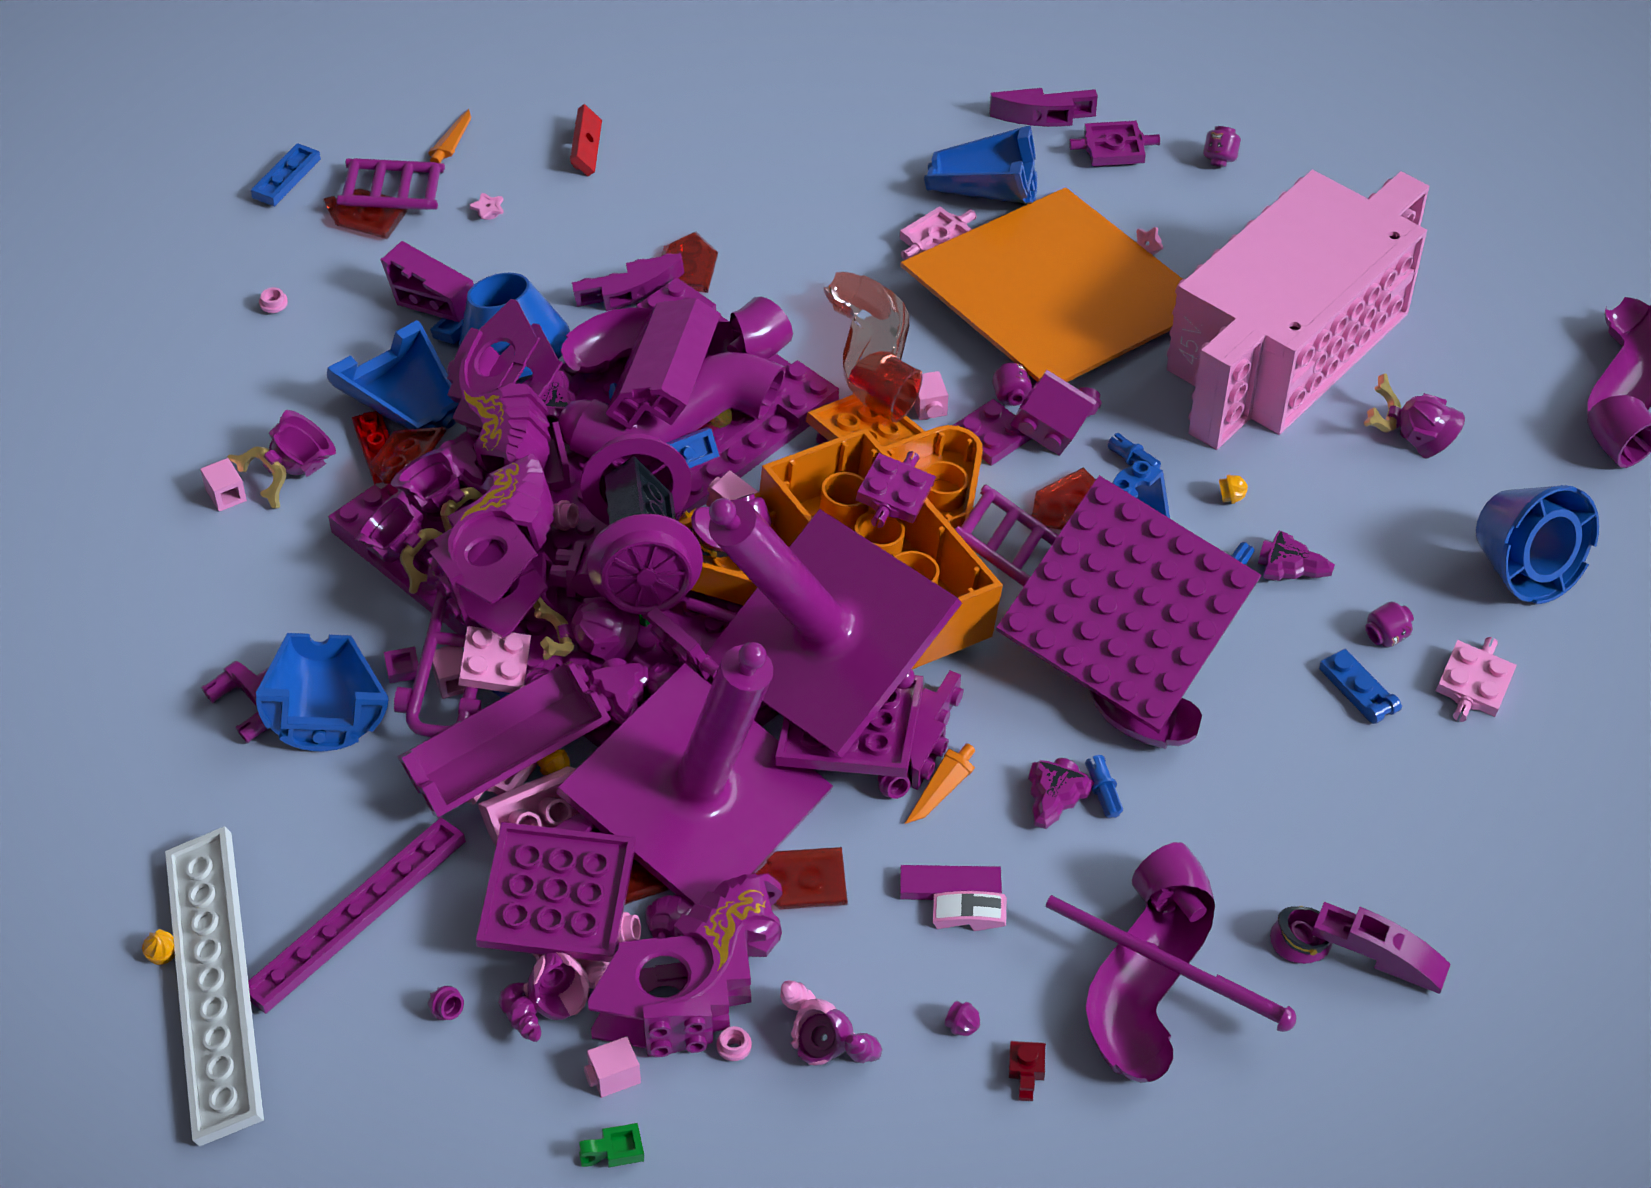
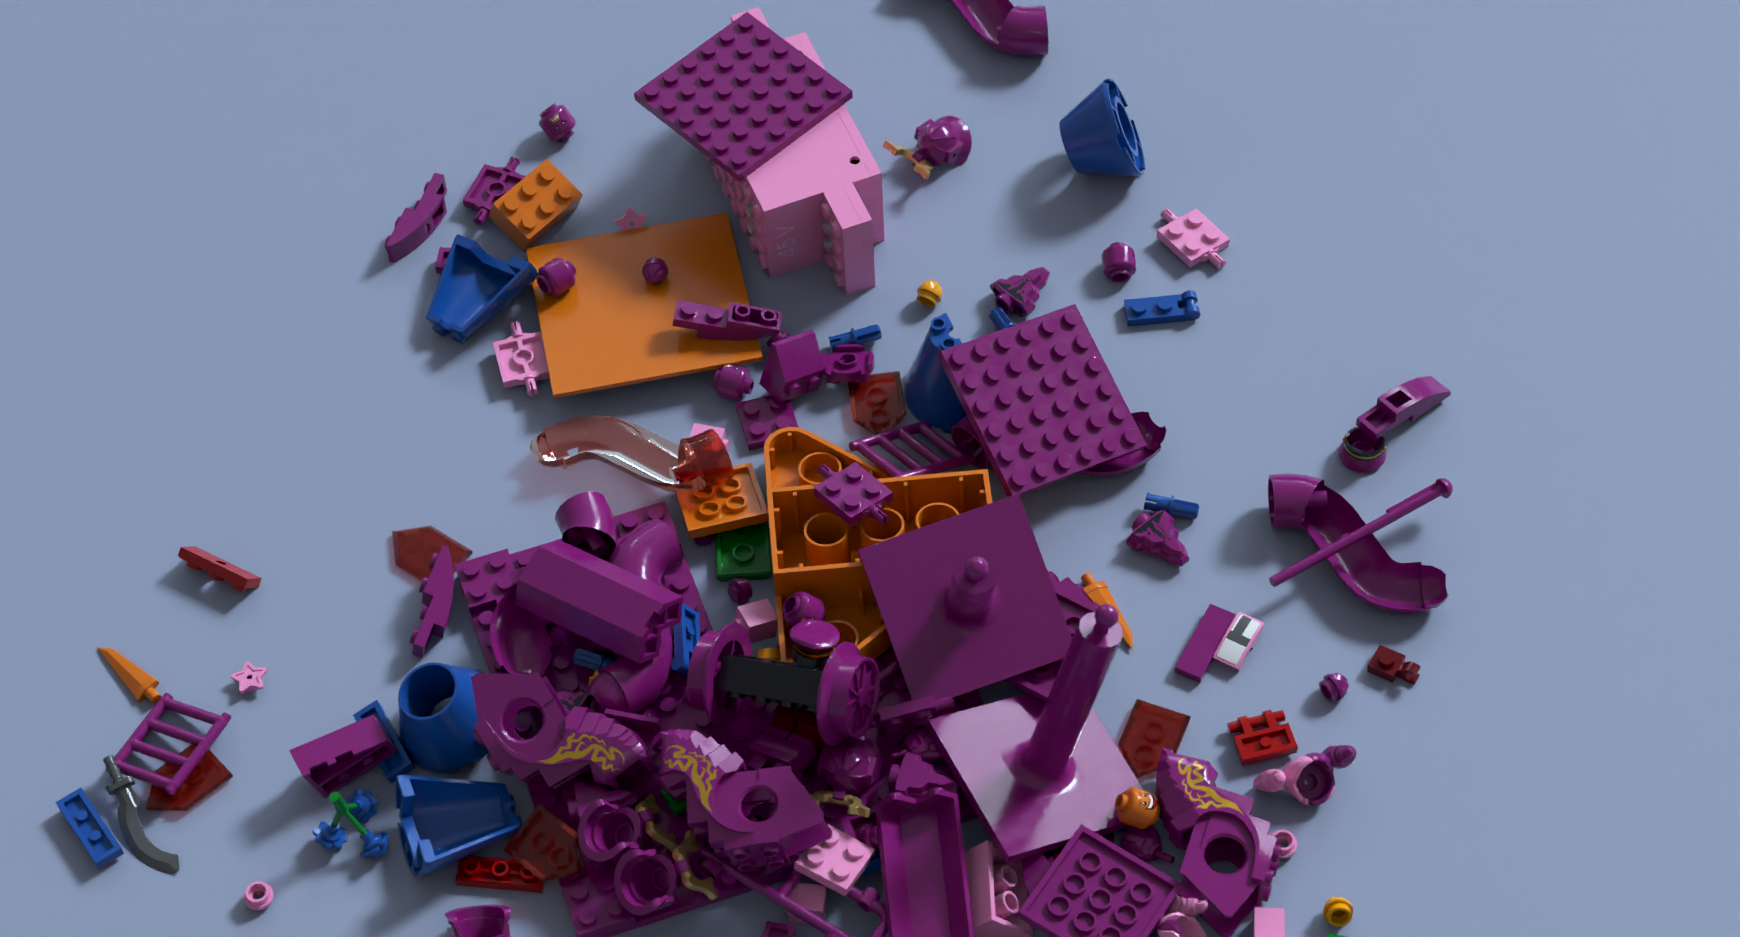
camera: 60 degrees left, 5 degrees up
(281, 227) = (131, 825): none -> dark grey sword
(356, 320) = (358, 808): none -> blue plant
(672, 1124) = (1338, 911): none -> light orange plate
(689, 883) = (1137, 808): none -> orange head
(852, 982) = (1264, 743): none -> red plate
(1034, 210) = (556, 277): none -> magenta head
(1064, 341) = (734, 324): none -> magenta slope
(1095, 274) = (654, 270): none -> magenta plate
(1095, 458) = (848, 364): none -> magenta plate
(1111, 167) = (535, 205): none -> orange brick
(1306, 216) = (743, 96): none -> magenta plate

